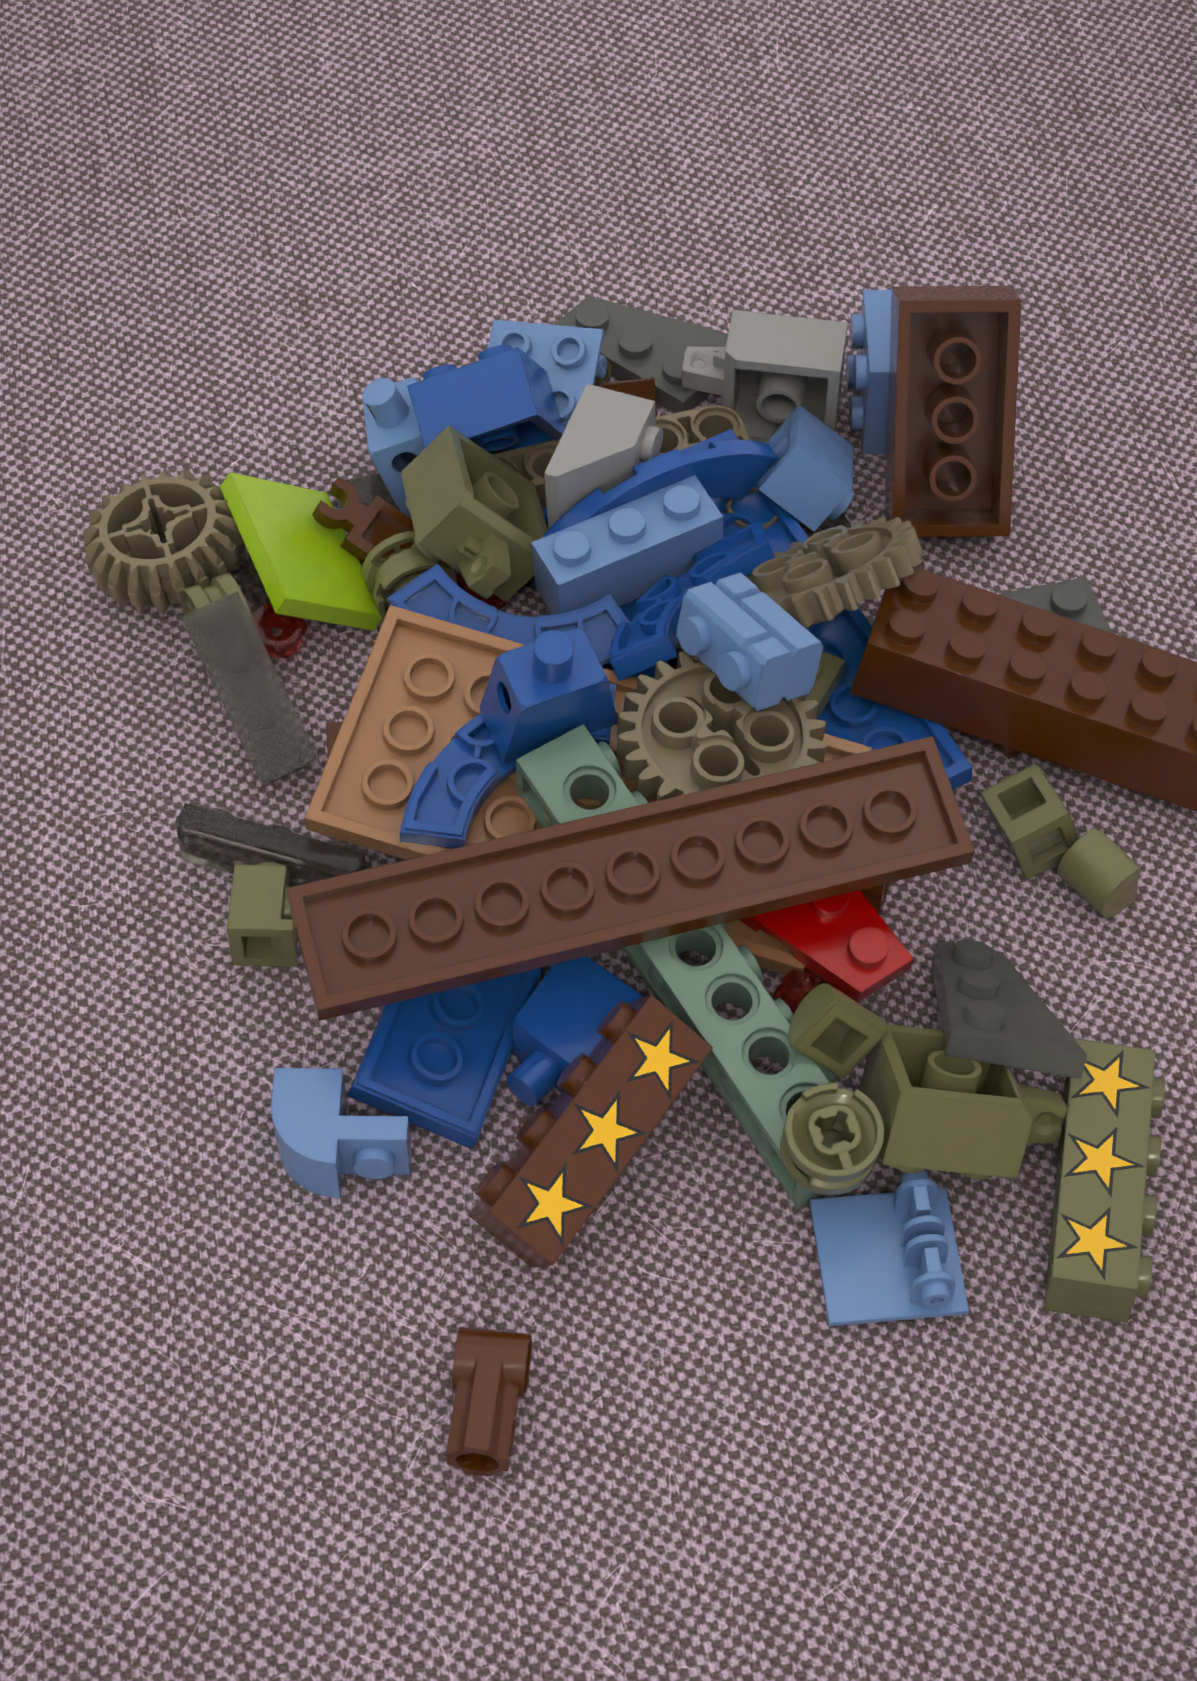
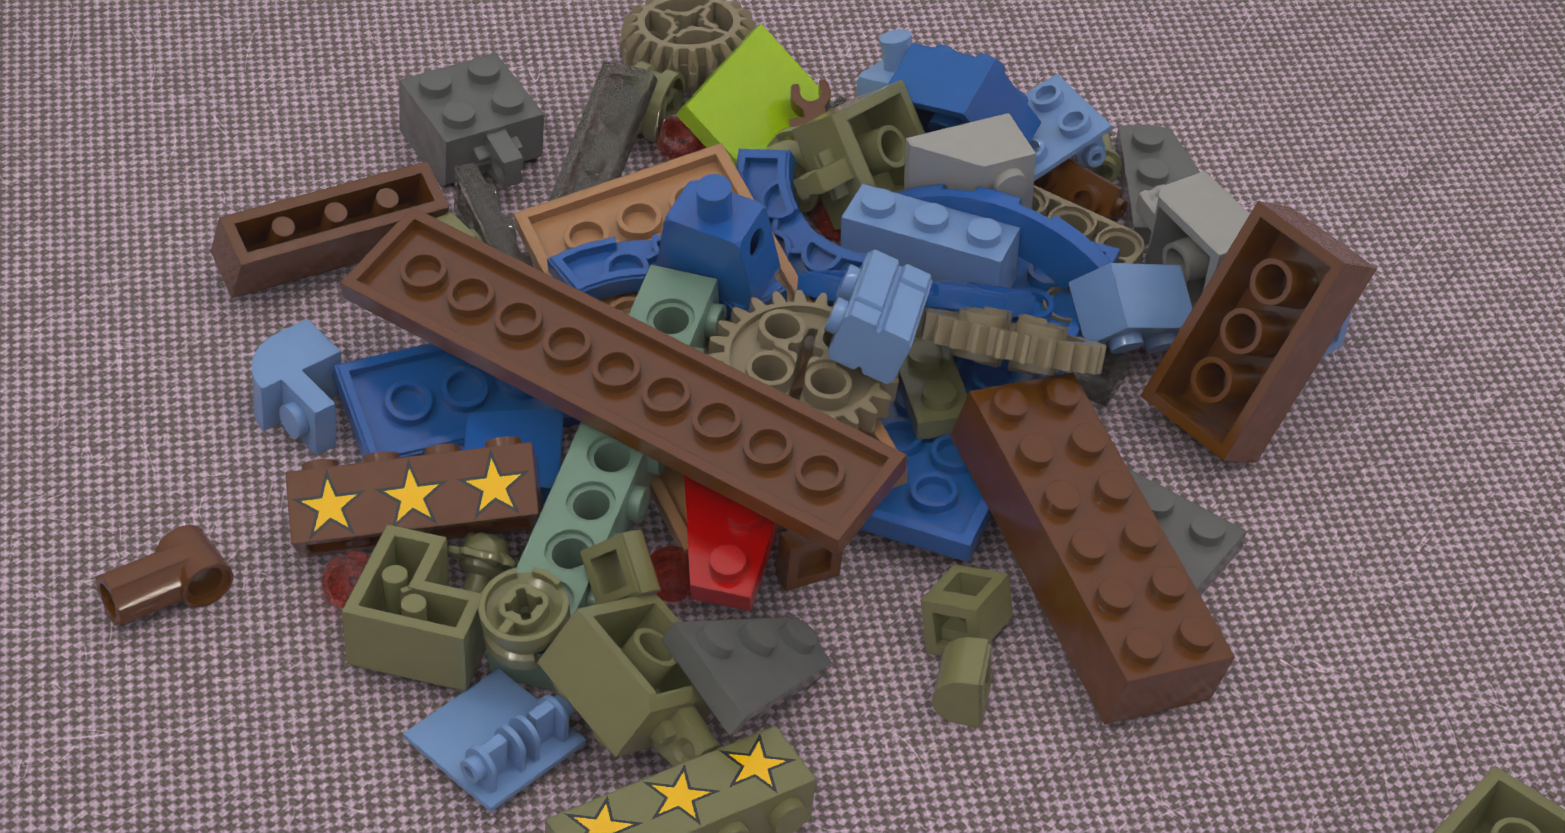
camera: 45 degrees right, 10 degrees down
(112, 771) = (471, 116): none -> dark grey hinge
(157, 976) = (319, 228): none -> reddish brown brick
(631, 1255) = (337, 575): none -> clear red plate
(681, 1130) = (482, 559): none -> olive plant
(717, 1235) = (409, 617): none -> olive brick

